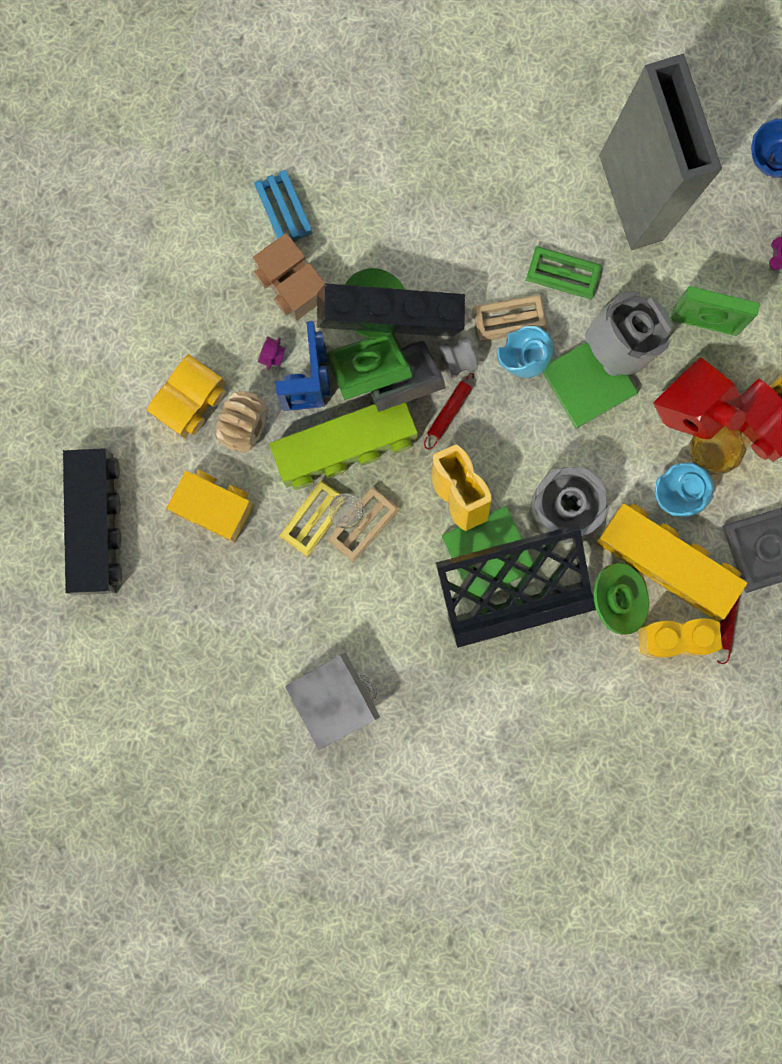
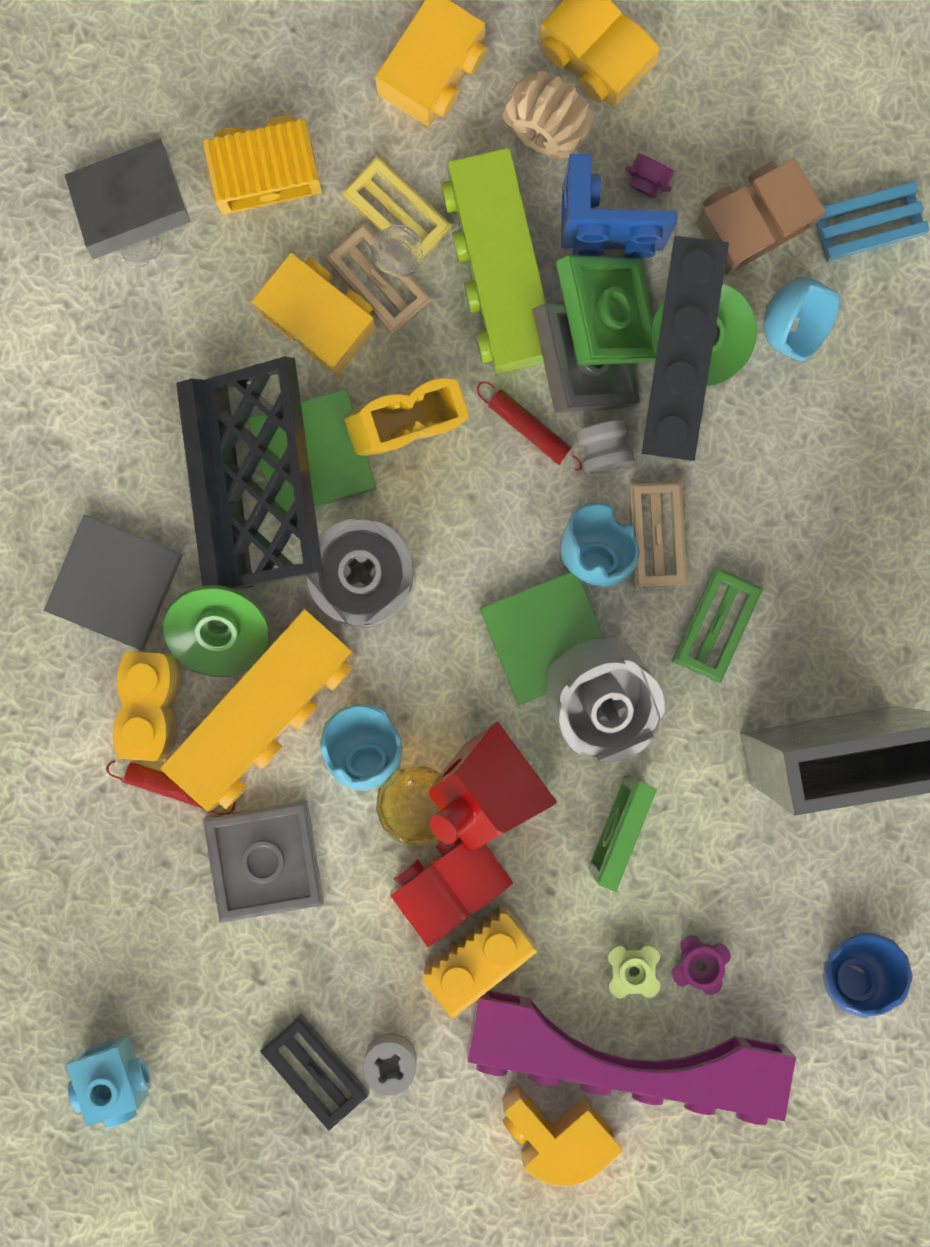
camera: 90 degrees right, 5 degrees up
(296, 611) = (262, 165): none -> yellow brick
(355, 243) = (816, 308): none -> medium azure hair
(394, 561) = (315, 312): none -> yellow piece
(596, 676) = (113, 582): none -> dark grey tile

